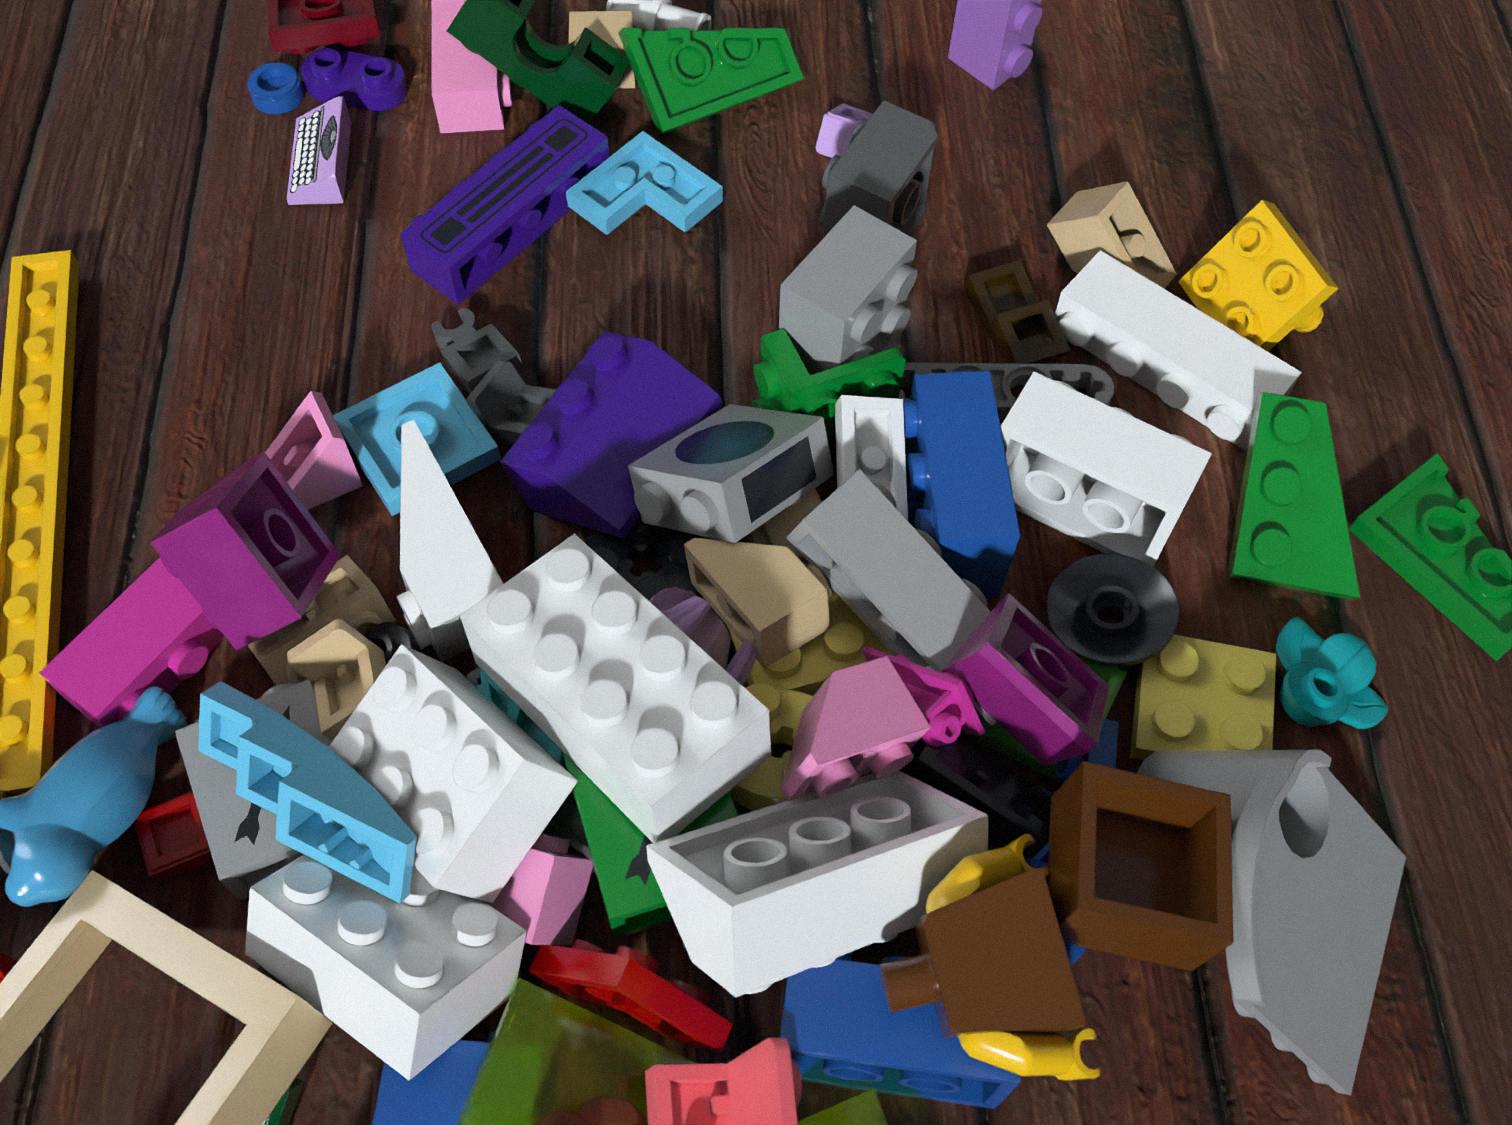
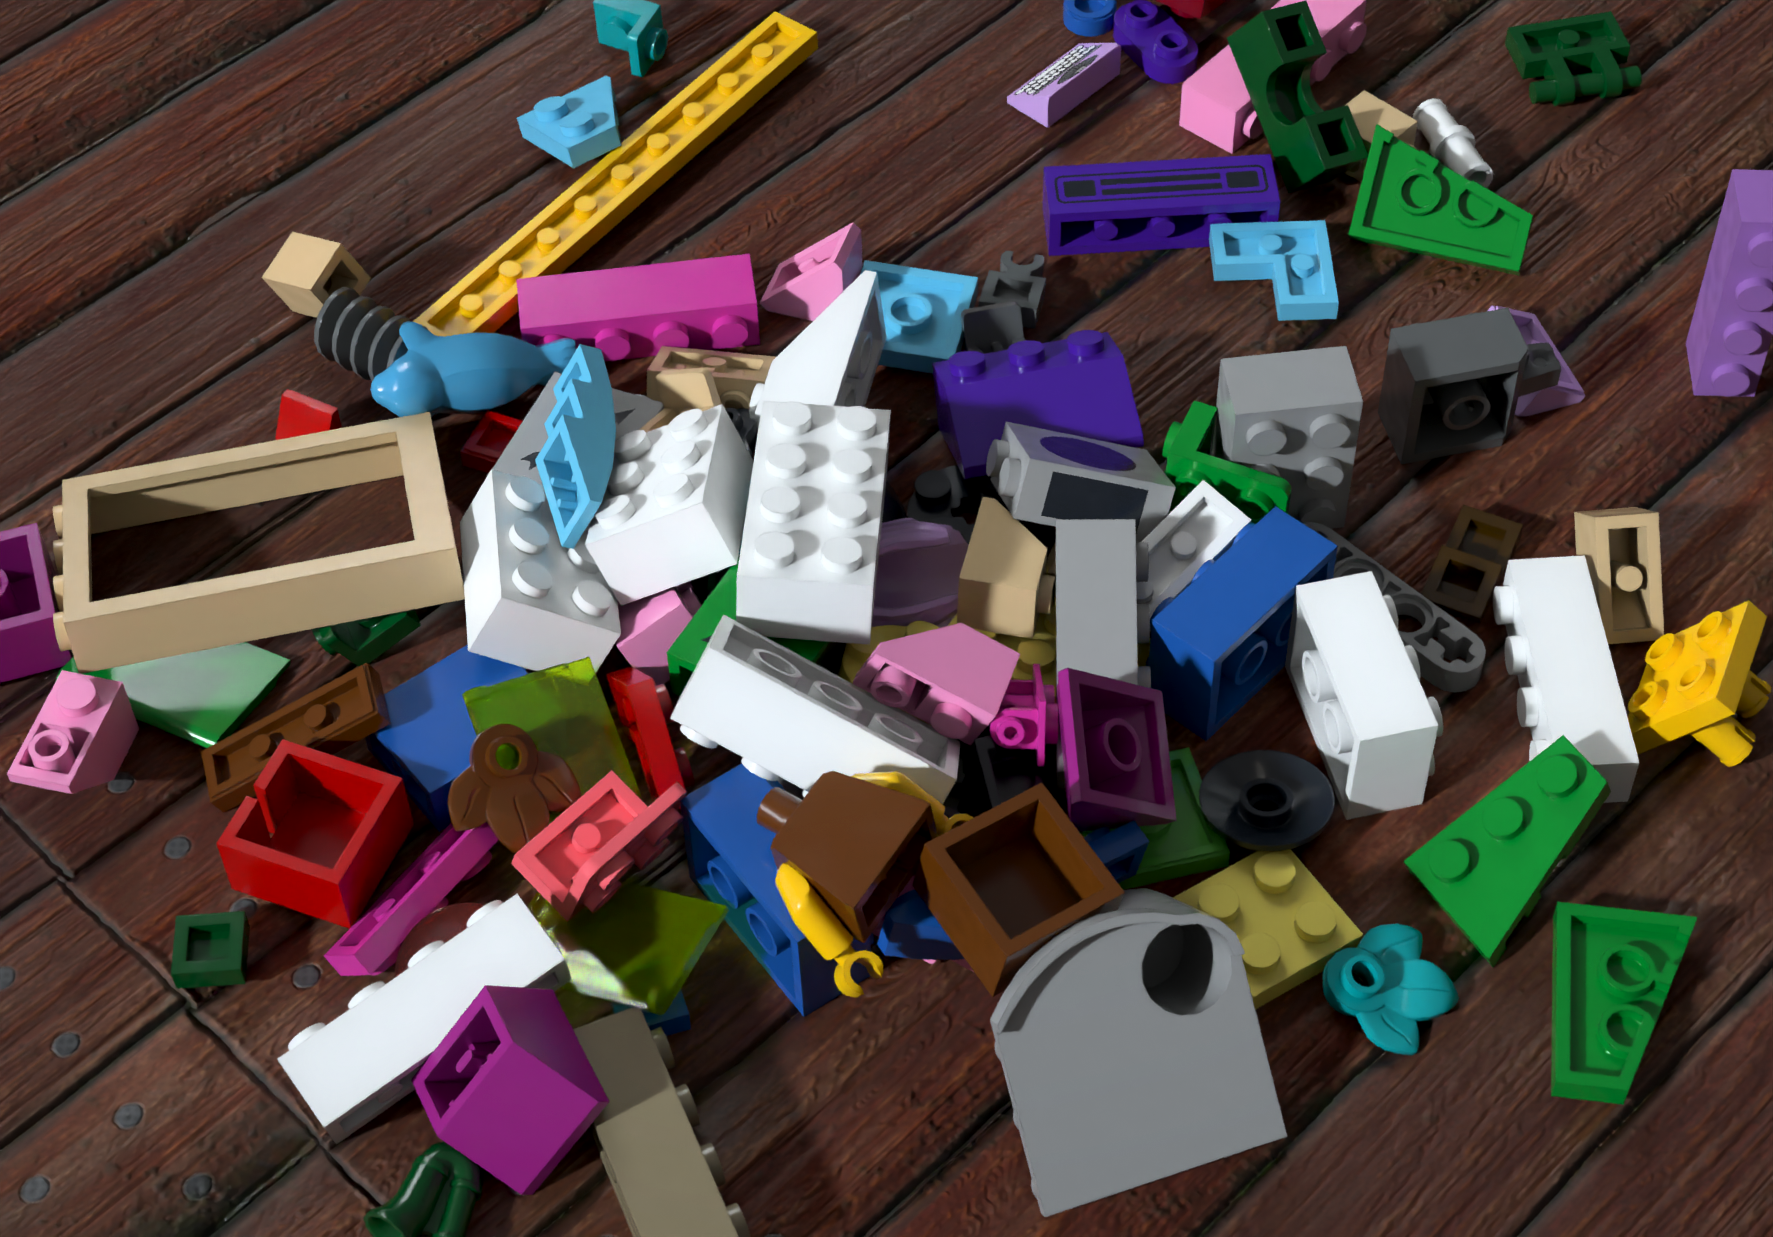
camera: 50 degrees right, 10 degrees down
(248, 552) = (706, 292): magenta slope -> none

